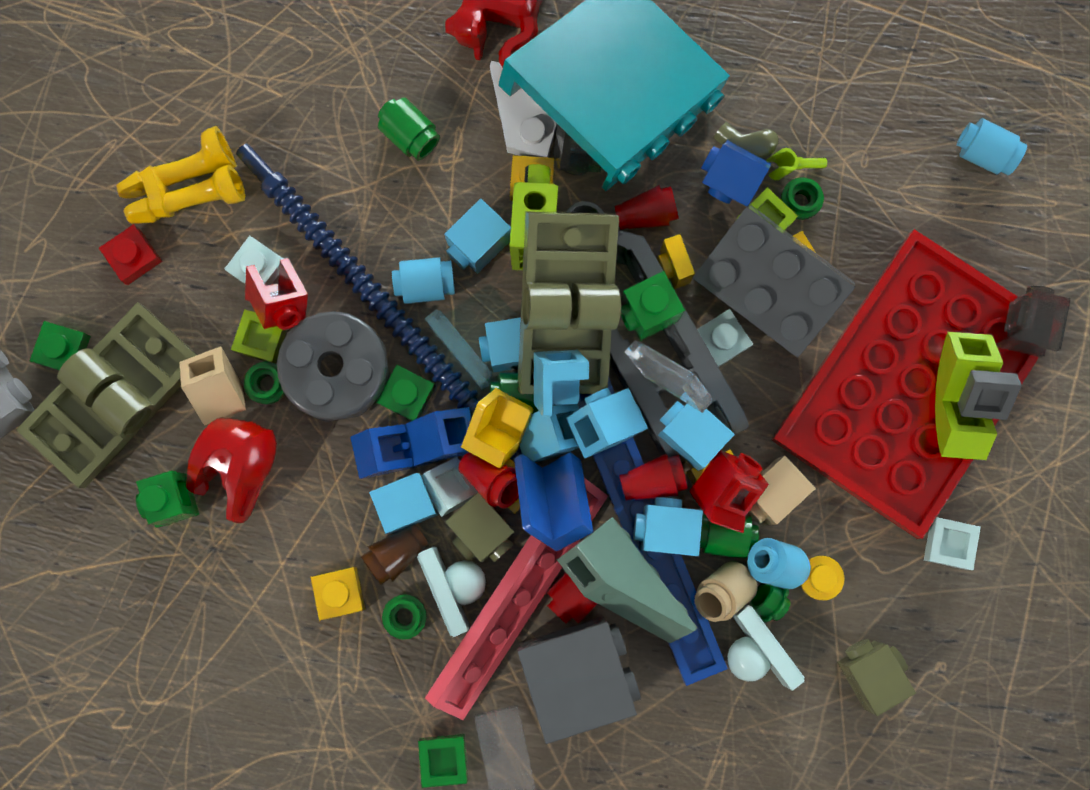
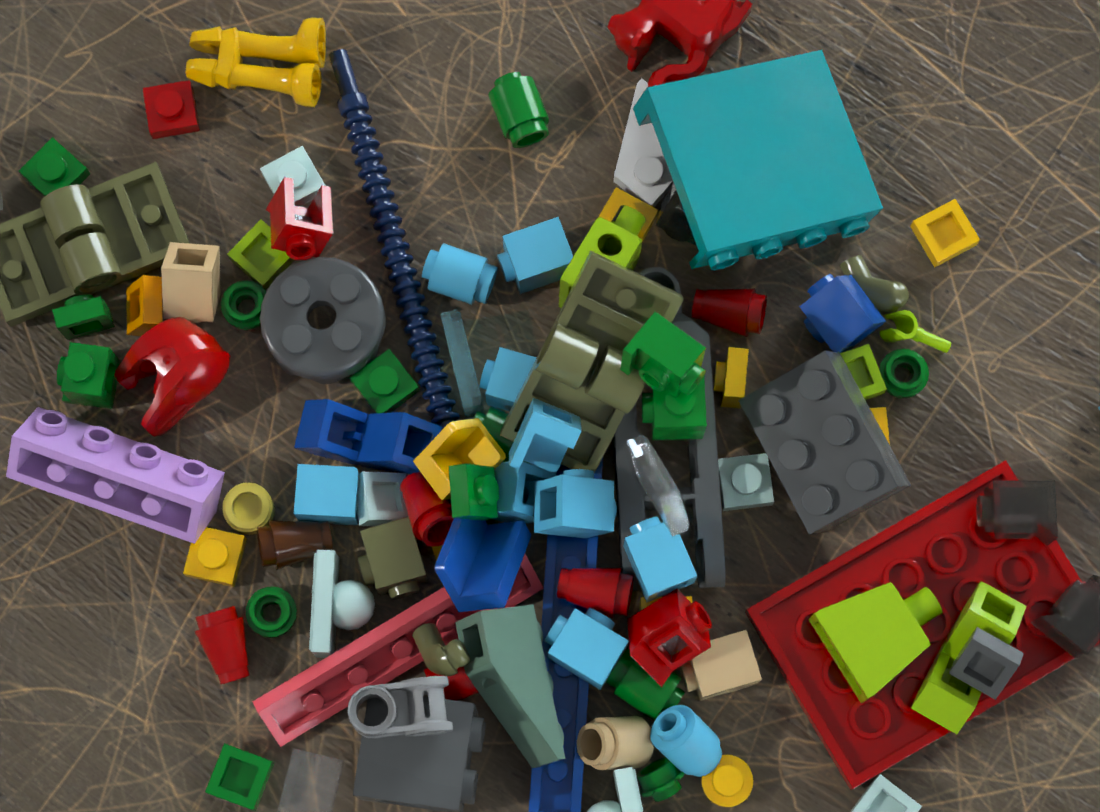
camera: 25 degrees right, 5 degrees down
(138, 453) = (83, 316): none -> green plate
(183, 421) = (144, 304): none -> light orange tile
(224, 569) = (115, 474): none -> lavender brick
(345, 543) = (247, 508): none -> light yellow tile
(379, 660) = (224, 643): none -> red cone
(522, 449) = (473, 492): none -> green plate
(555, 593) = (437, 656): none -> olive arm
(557, 657) = (404, 708): none -> light grey piece
(630, 270) = (665, 357): none -> green brick
(782, 75) = (945, 233): none -> yellow plate
(888, 413) = (875, 634): none -> lime torso
(950, 262) = (1019, 510): none -> clear smoke window

